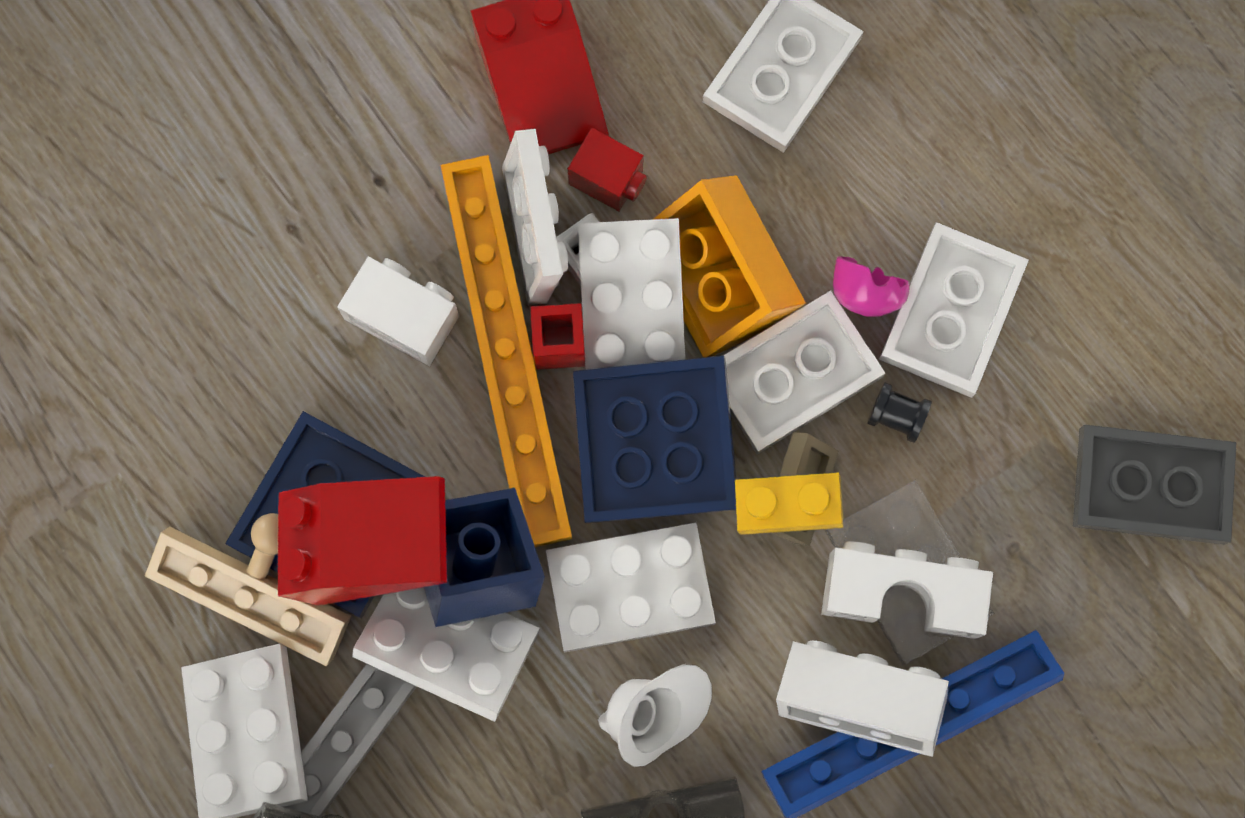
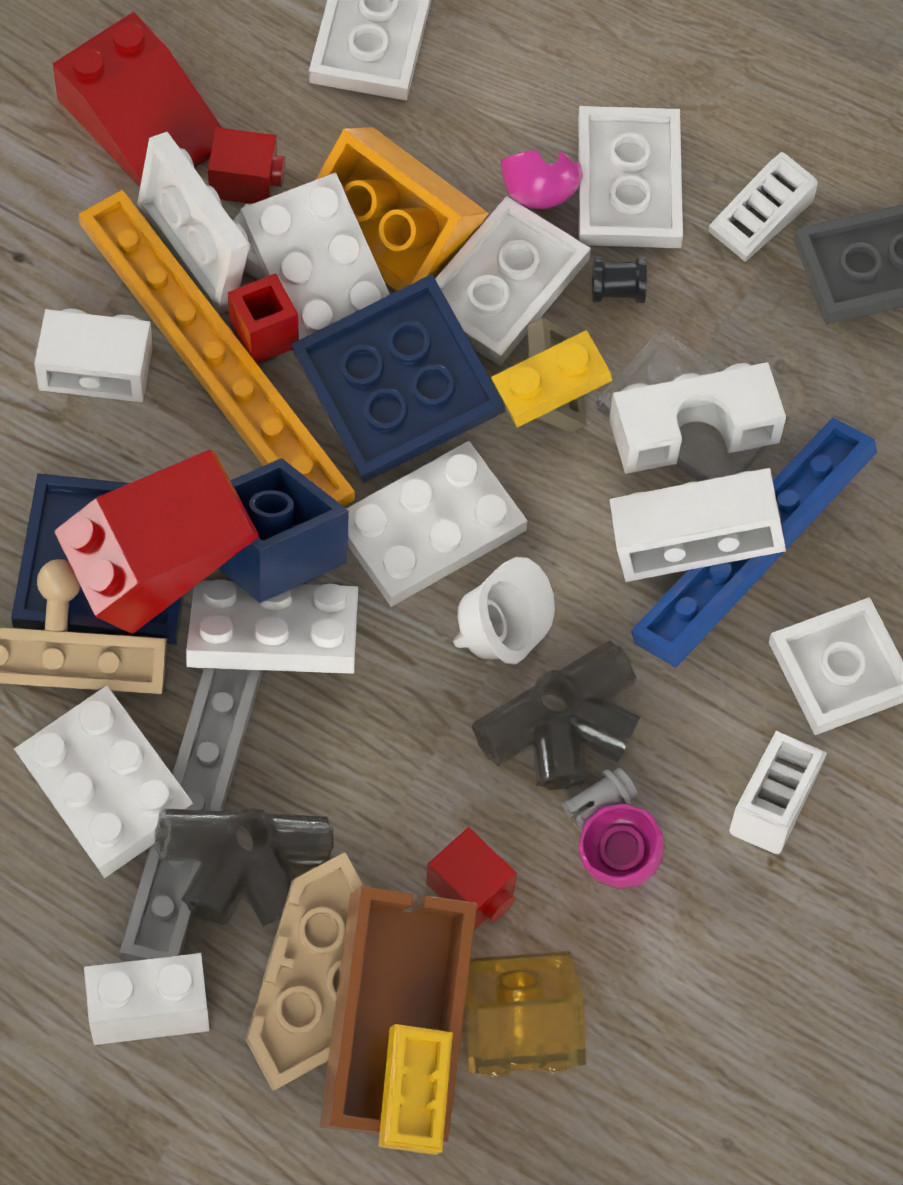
camera: 25 degrees left, 15 degrees down
(1102, 367) = (786, 184): none -> white slope

